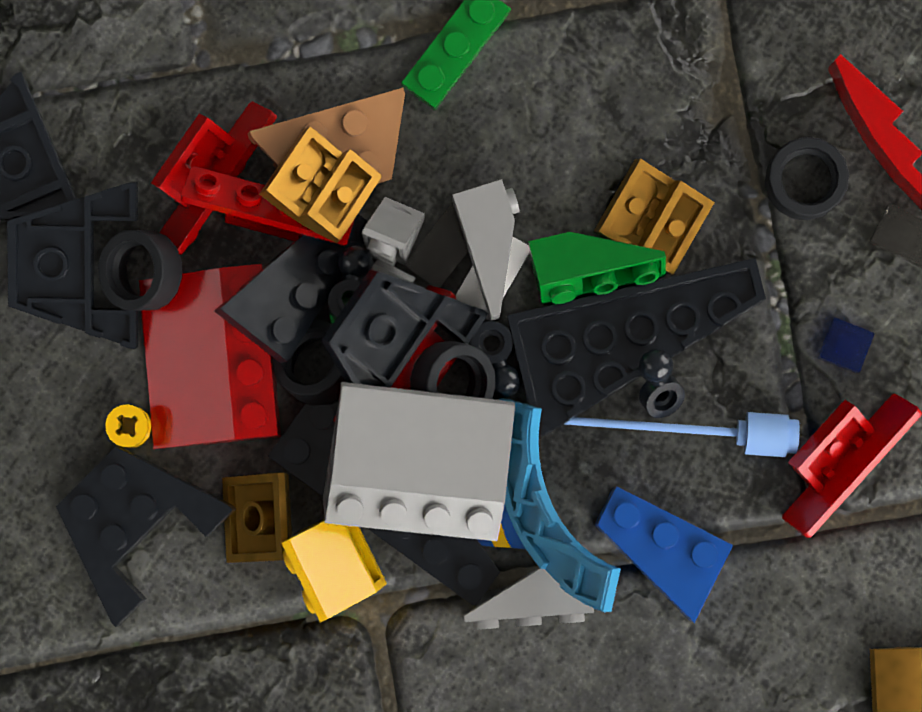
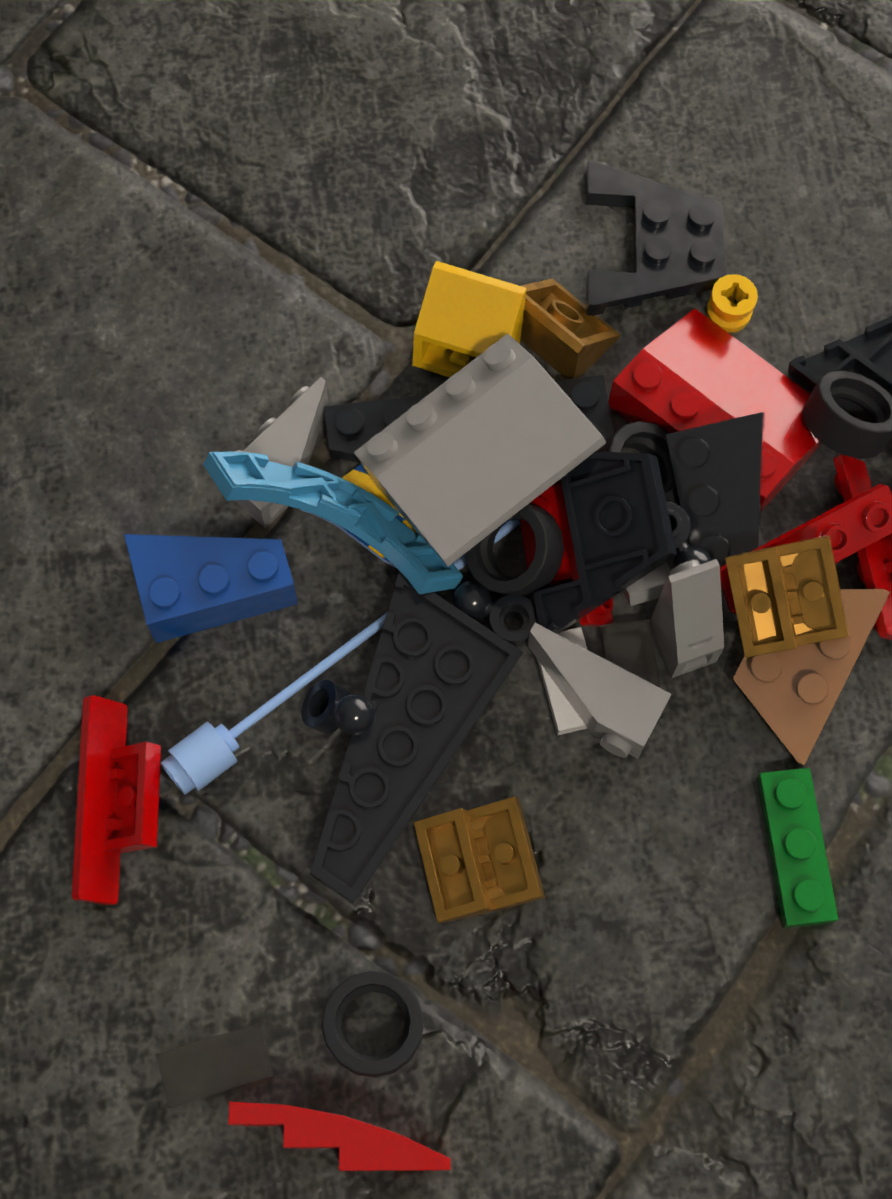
camera: 140 degrees right, 15 degrees down
(584, 264) = (505, 745): green slope -> none
(846, 345) = (199, 905): clear blue plate -> none

